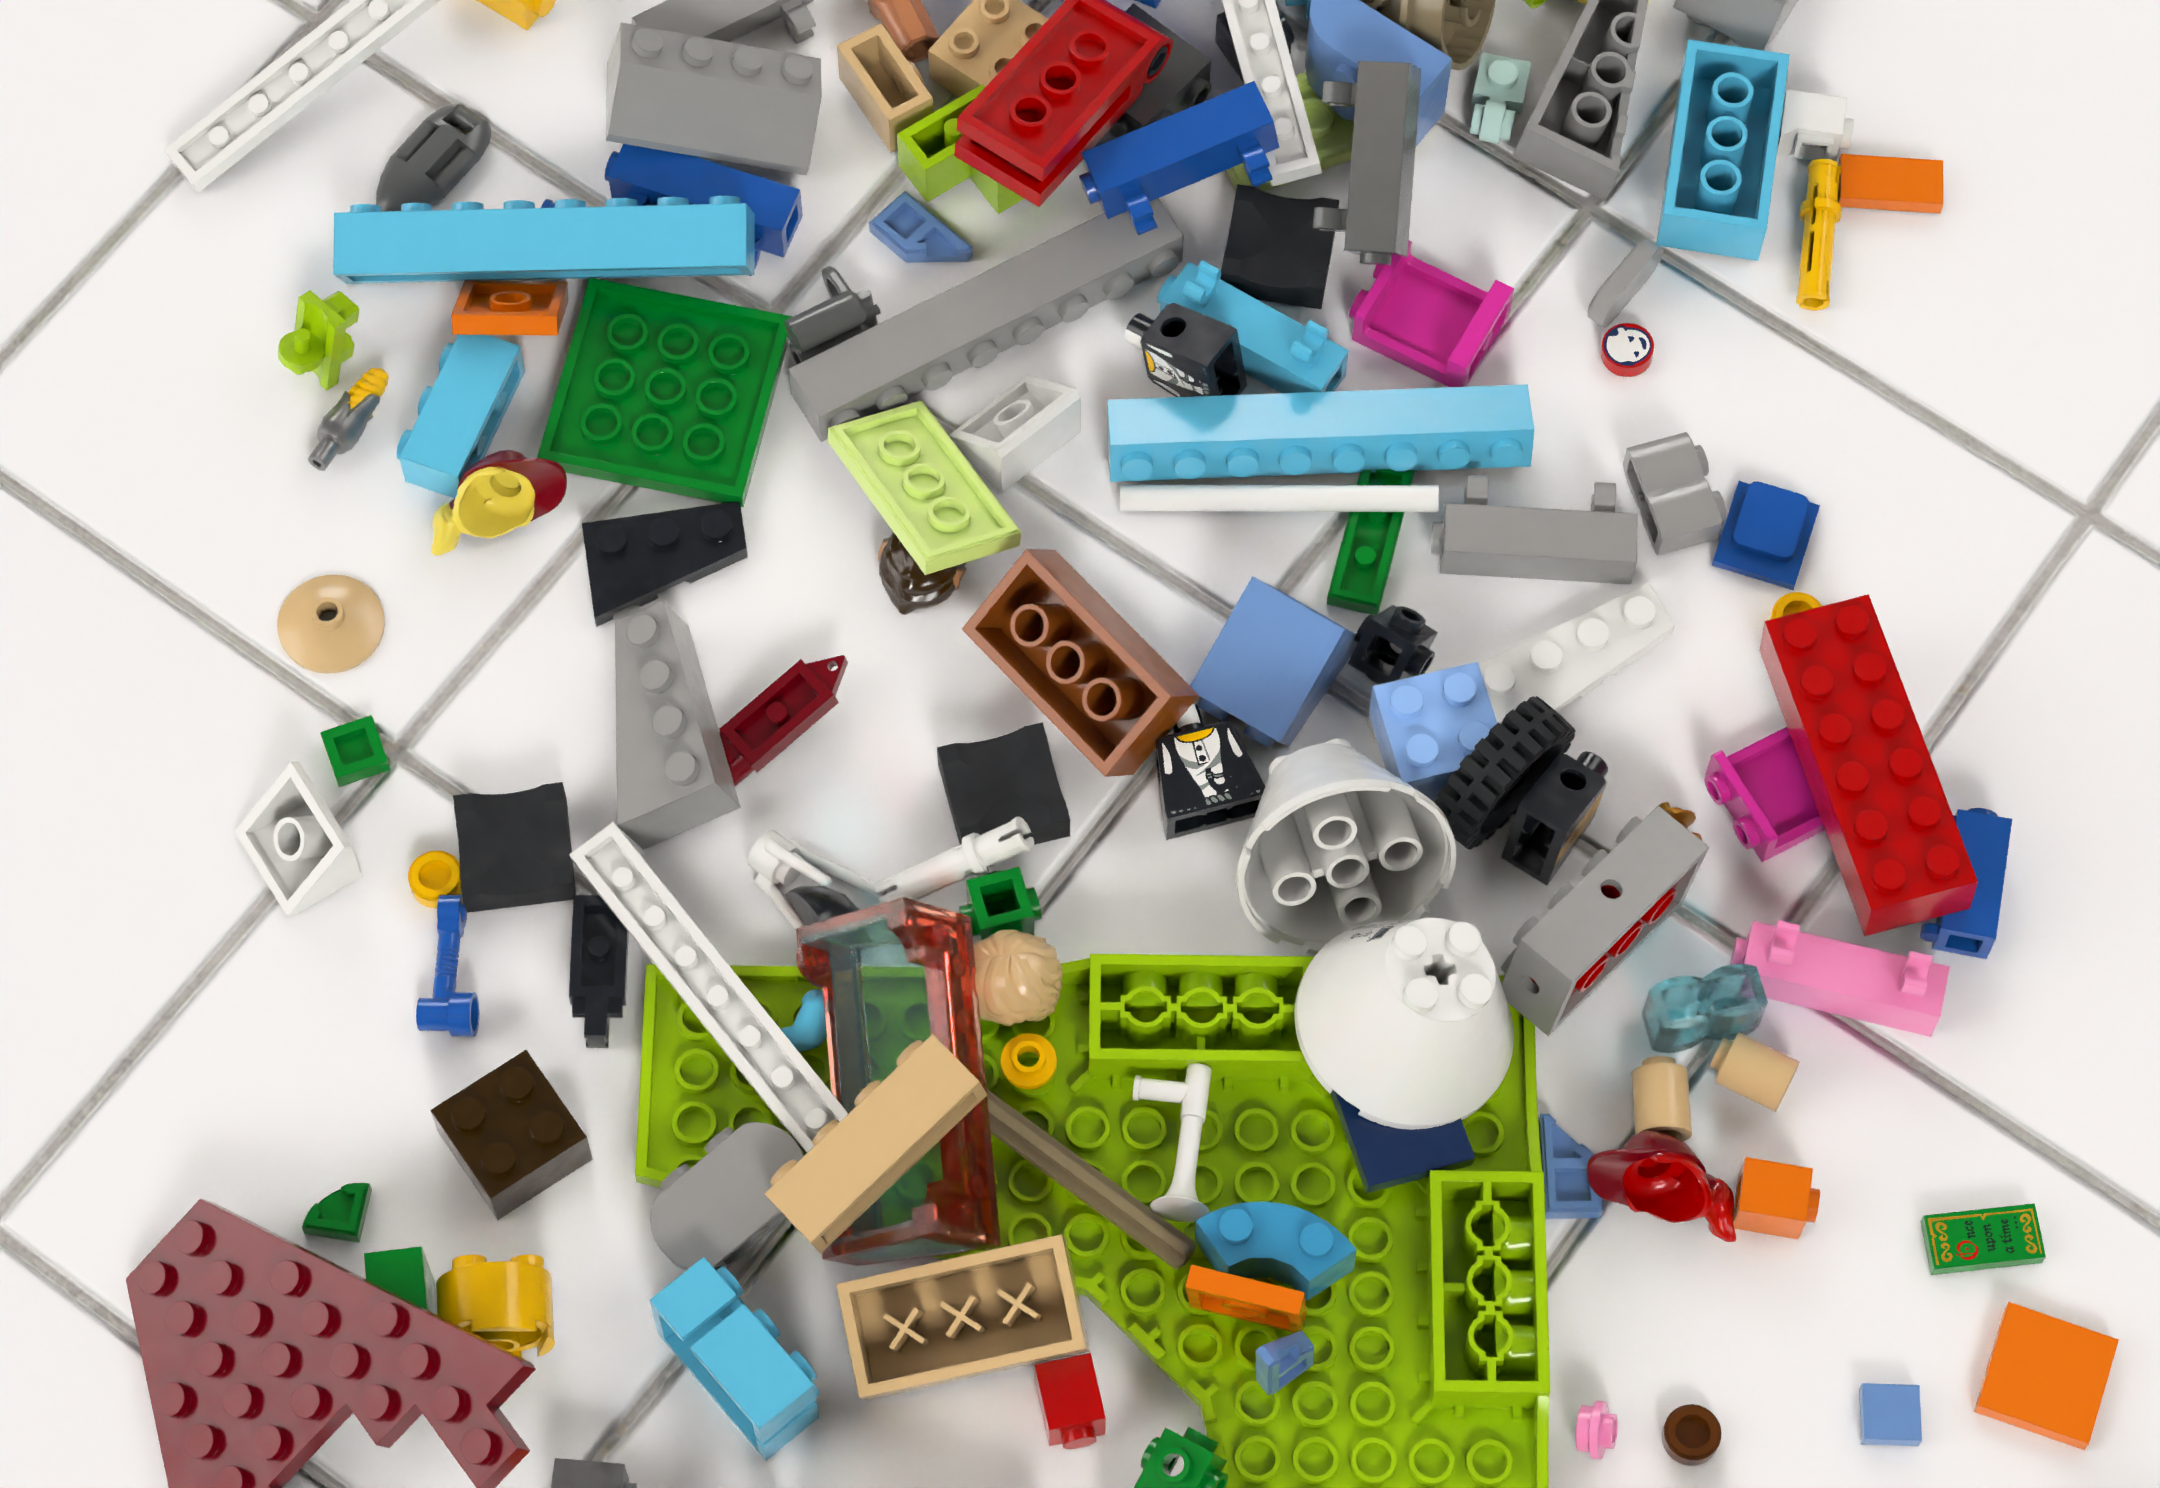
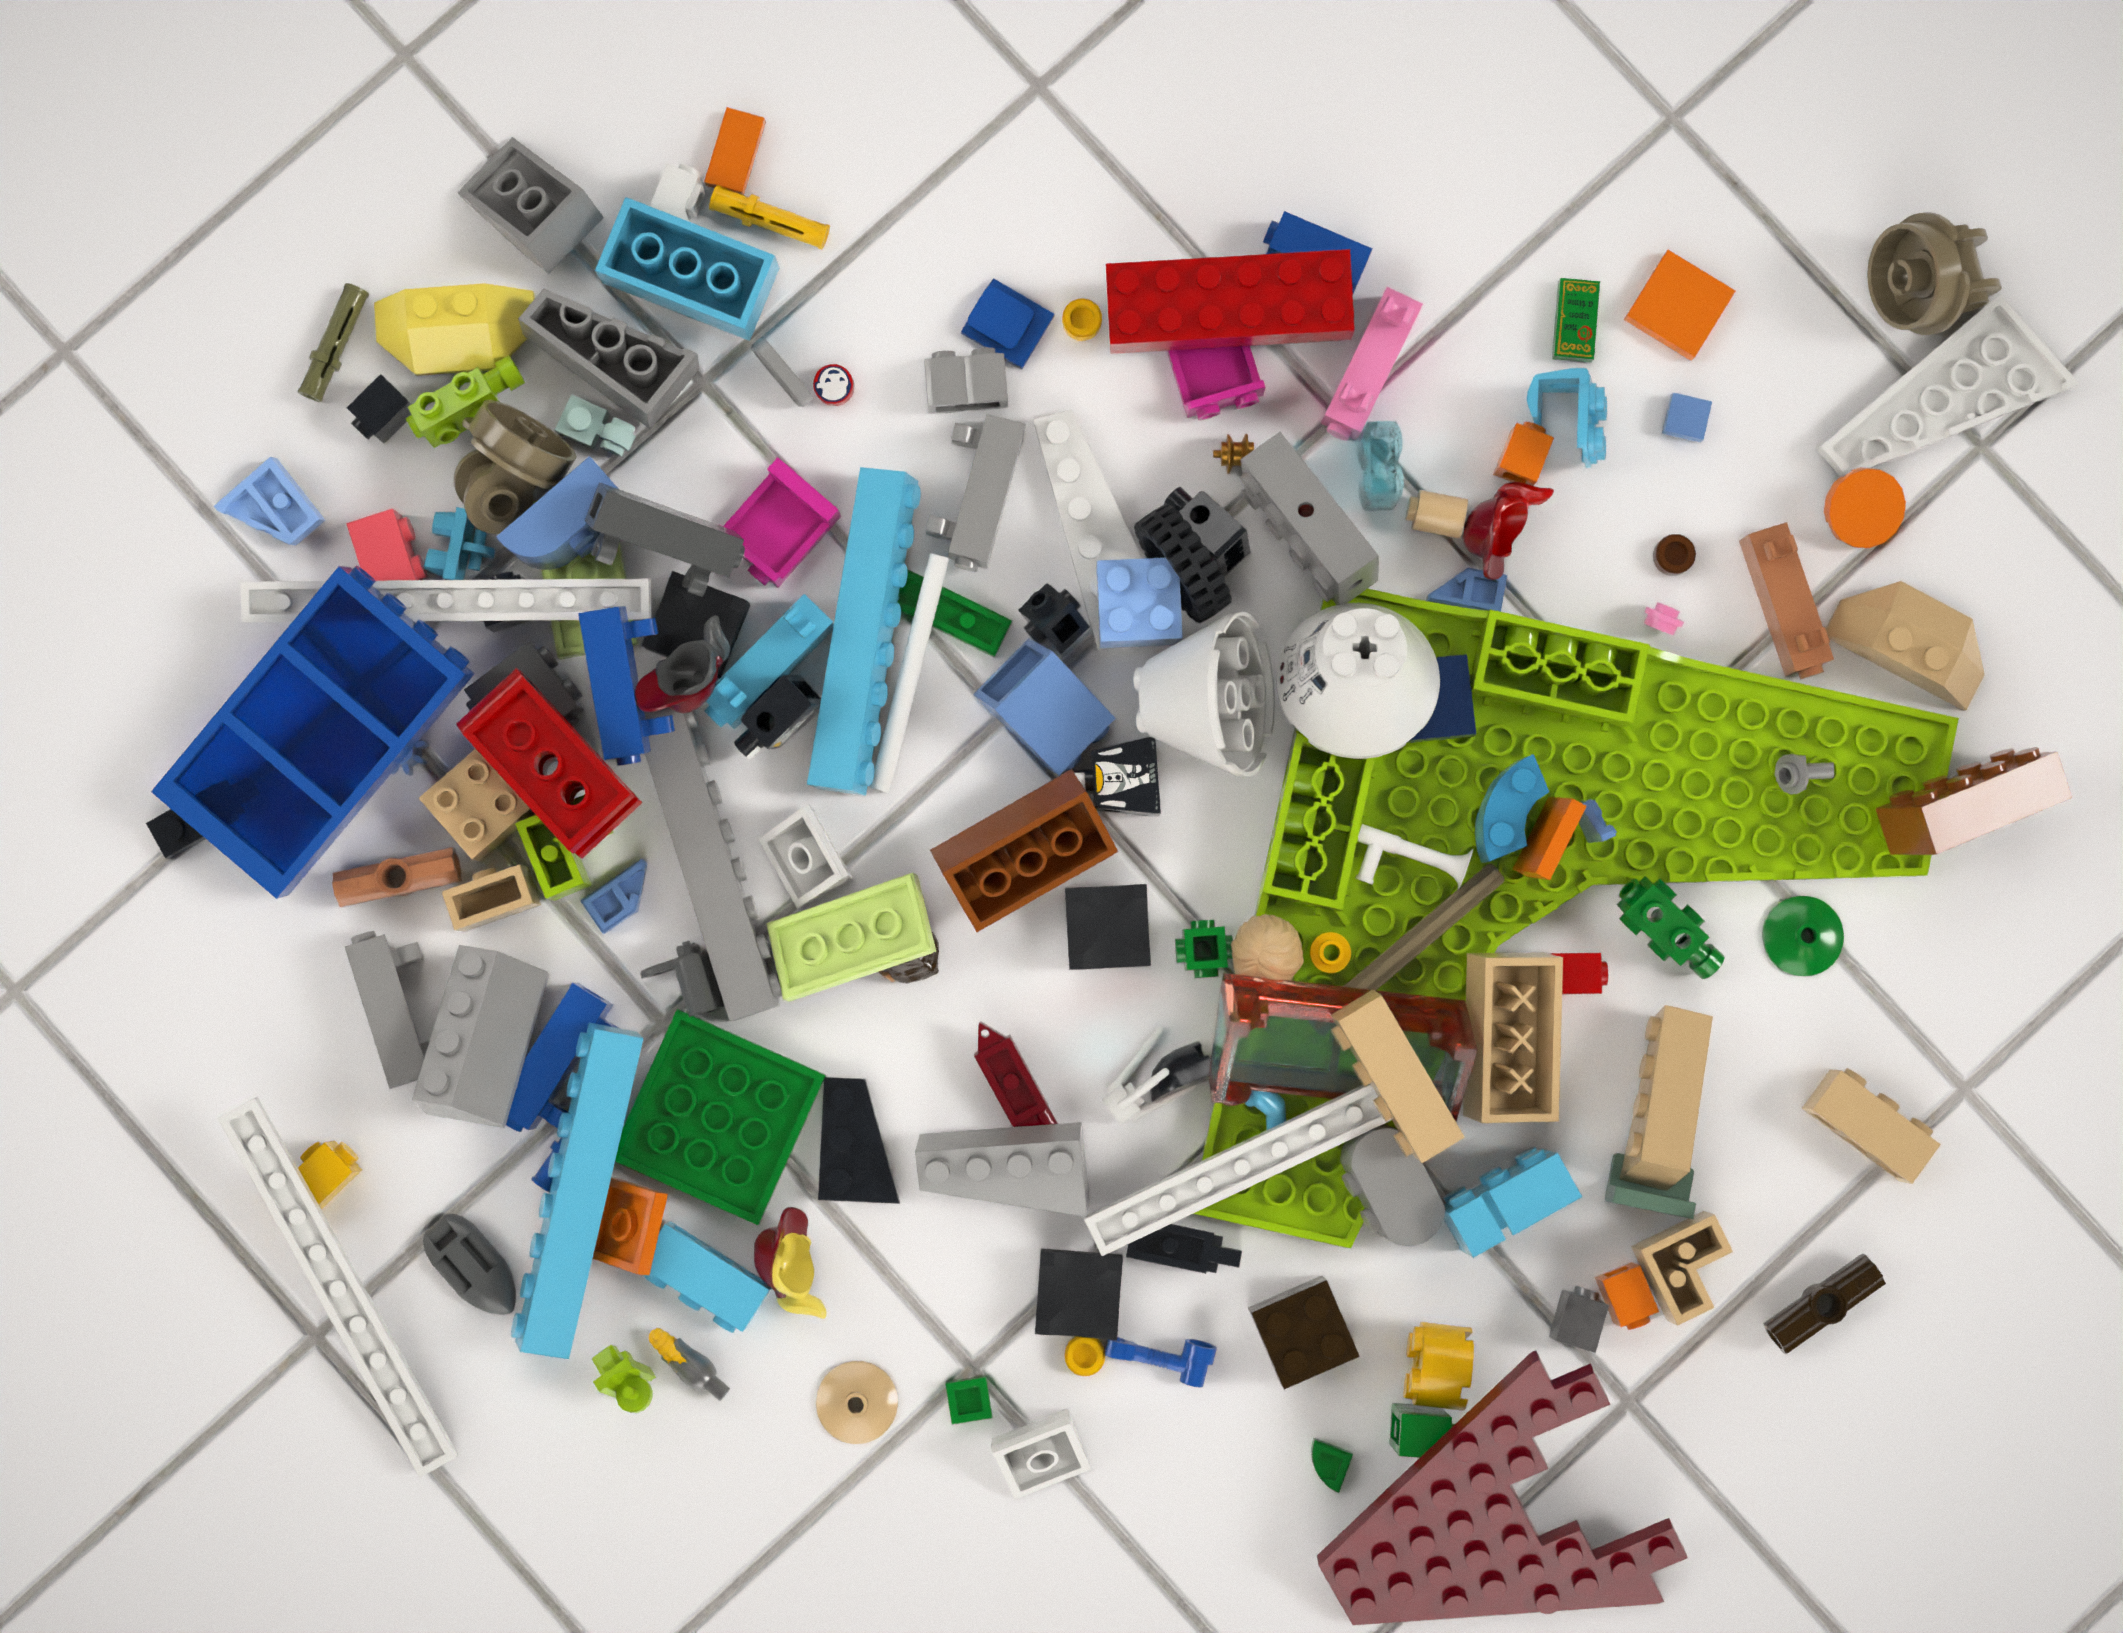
camera: 80 degrees left, 20 degrees up
(973, 856) = (1164, 959): white pin -> none
(1210, 230) = (686, 675): none -> dark grey hair
(1754, 1070) = (1428, 442): tan brick -> none
(1852, 1247) = (1591, 407): none -> medium azure piece

